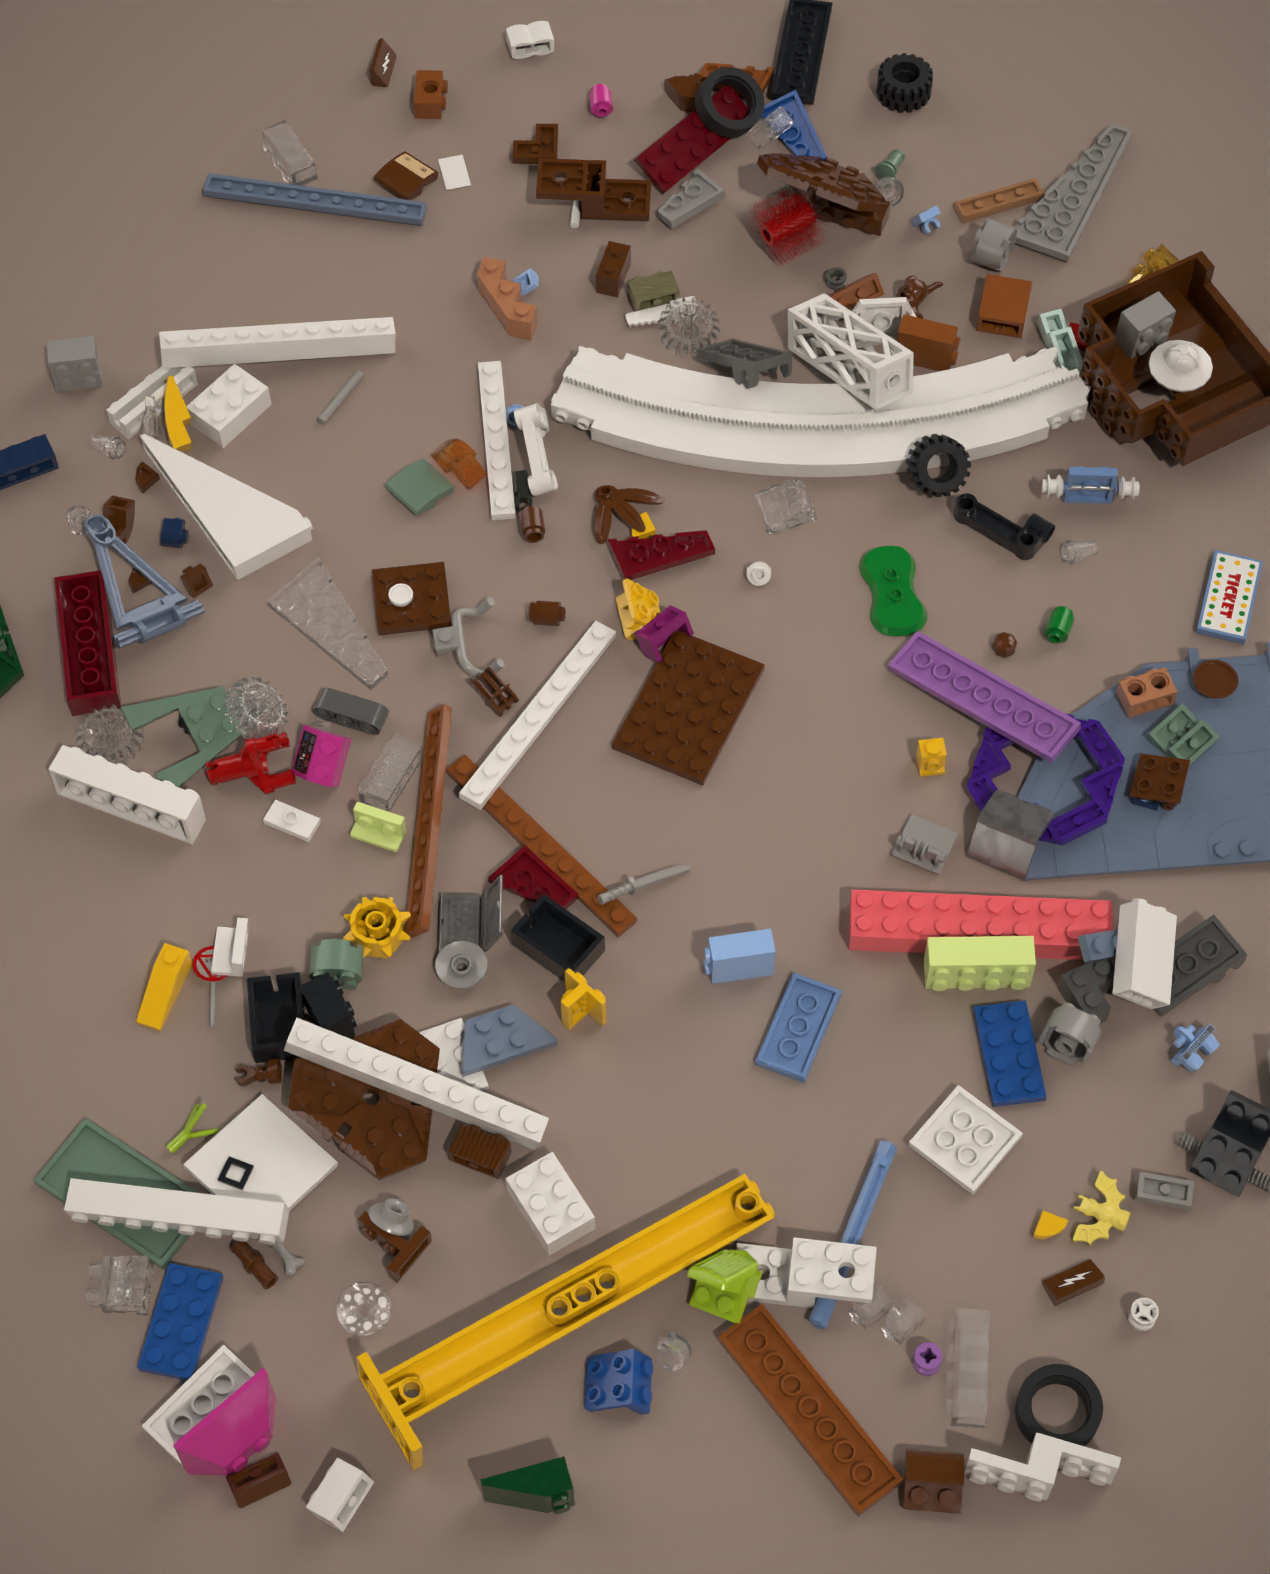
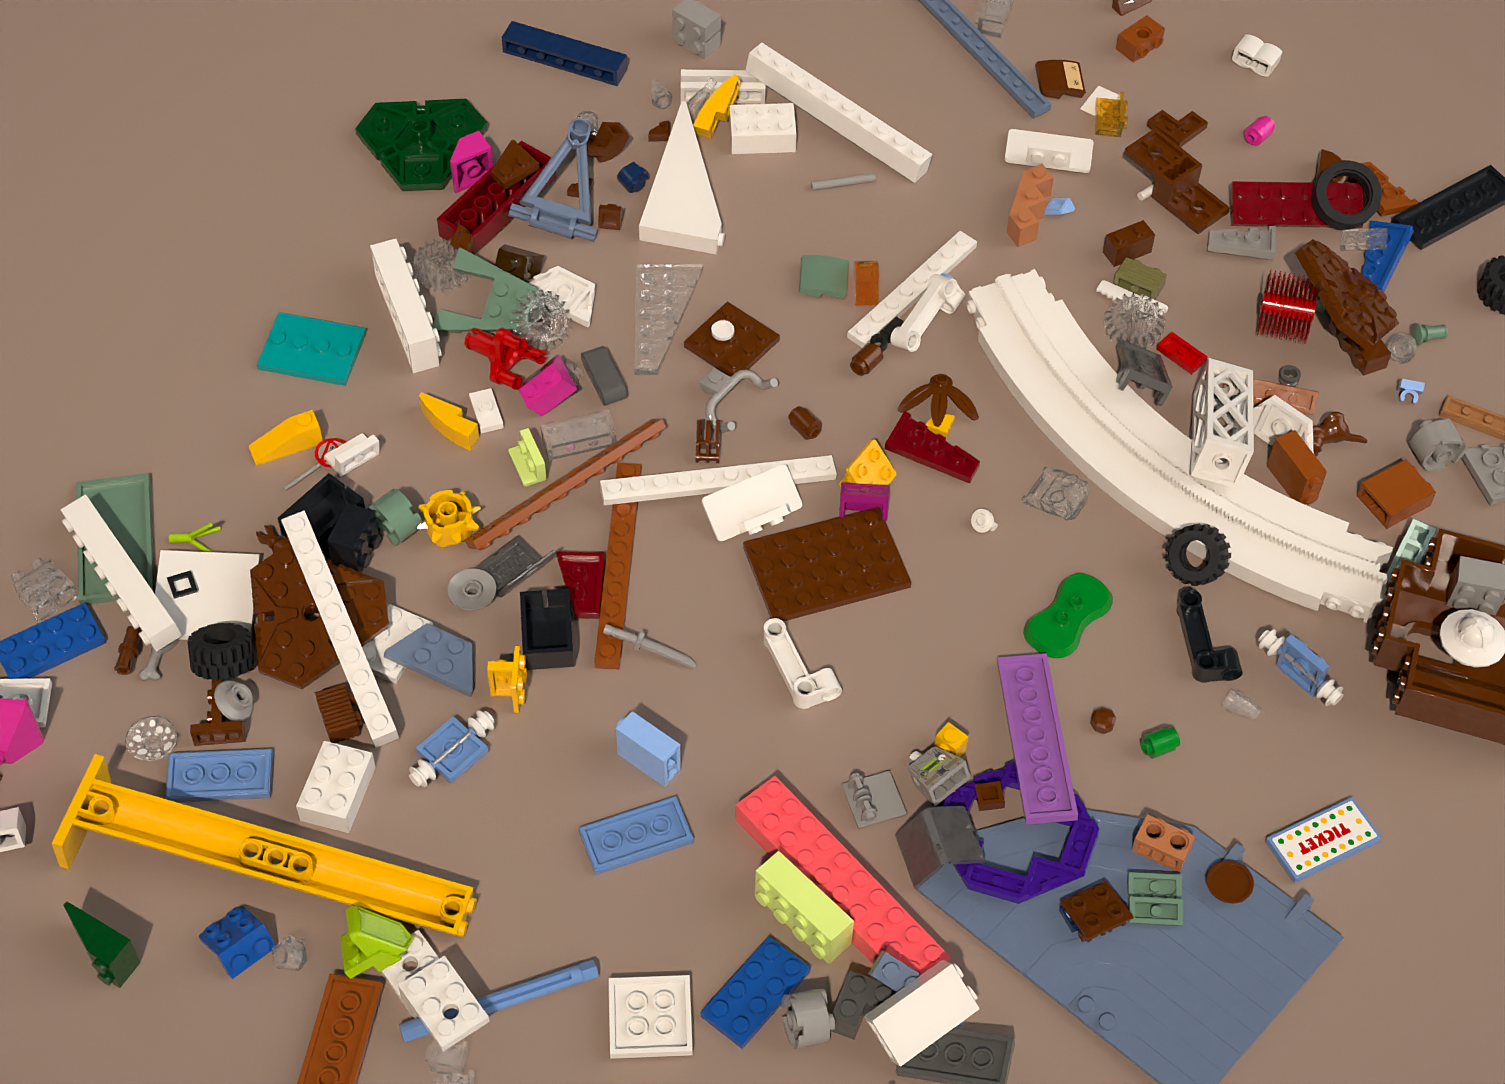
camera: 45 degrees right, 5 degrees down
(30, 628) = (470, 161): none -> dark pink slope
(77, 602) = (513, 165): none -> reddish brown wing
(85, 898) = (311, 348): none -> teal plate
(111, 699) = (462, 239): none -> reddish brown tile
(171, 680) = (516, 261): none -> dark brown torso
(232, 665) = (572, 289): none -> white wing
(276, 855) = (449, 421): none -> yellow slope
(338, 1191) = (220, 651): none -> black tyre
(447, 1284) = (219, 775): none -> medium blue tile
(466, 243) = (1050, 150): none -> white bracket
(479, 176) = (1110, 116): none -> clear yellow bracket
(588, 709) = (752, 503): none -> white bracket
(596, 1094) = (452, 749): none -> medium blue plate
(745, 323) = (1181, 353): none -> red plate
(760, 803) = (820, 685): none -> white piece
(949, 784) = (937, 773): none -> light grey torso
(1005, 766) = (989, 796): none -> reddish brown plate

